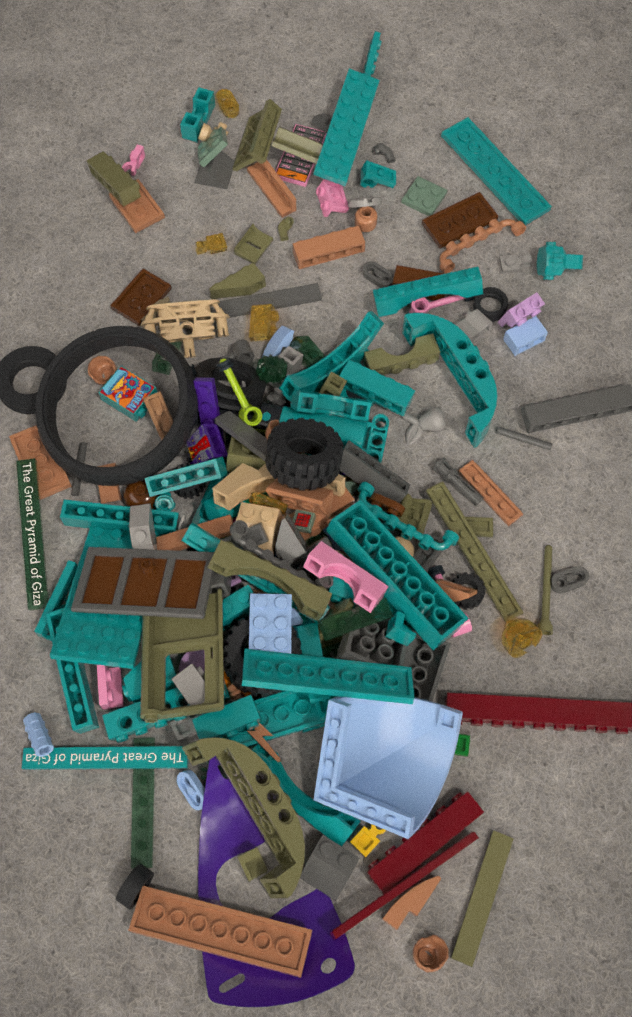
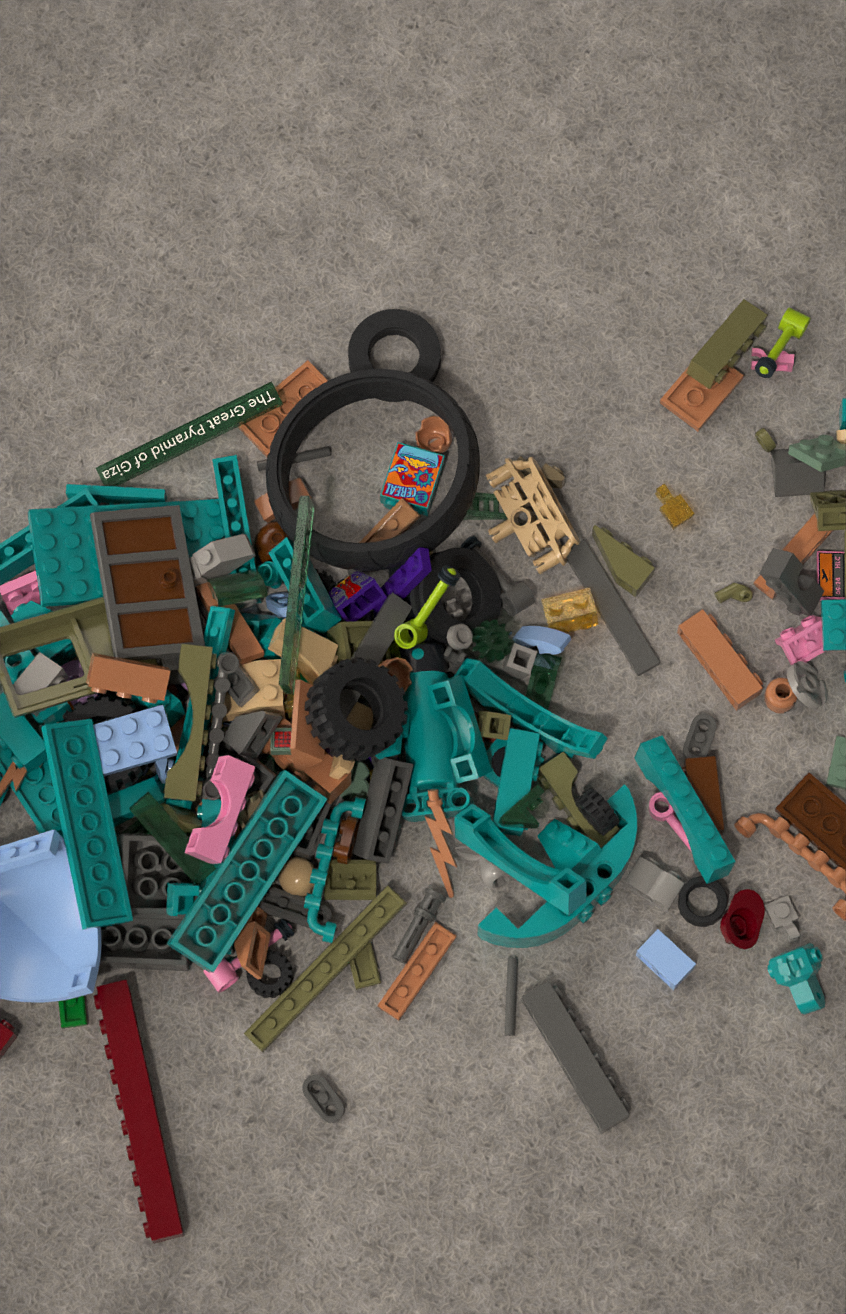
camera: 75 degrees right, 5 degrees up
(116, 142) = (792, 324): none -> lime piece
(139, 294) = (561, 444): reddish brown plate -> none
(172, 520) = (237, 587): none -> clear green slope
(187, 180) = (765, 440): none -> olive tile
(191, 501) = (277, 603): none -> light blue plate
(200, 471) = (296, 595): none -> clear green tile
(221, 610) = (127, 678): none -> nougat brick
(257, 239) = (679, 557): olive piece -> none
(263, 386) = (459, 636): none -> light grey tile
(294, 185) = (795, 590): none -> dark grey arch
(396, 444) = (436, 827): none -> nougat piece
(403, 383) = (519, 816): none -> clear green slope
(418, 337) = (597, 811): none -> black tyre
(437, 365) = (567, 846): none -> teal wing
(470, 369) = (559, 887): none -> teal arch
(512, 285) = (743, 920): none -> dark red piece
(519, 313) = (692, 941): lavender plate -> none
(520, 634) = (225, 1046): clear yellow cylinder -> none
(545, 624) = (252, 1081): olive piece -> none

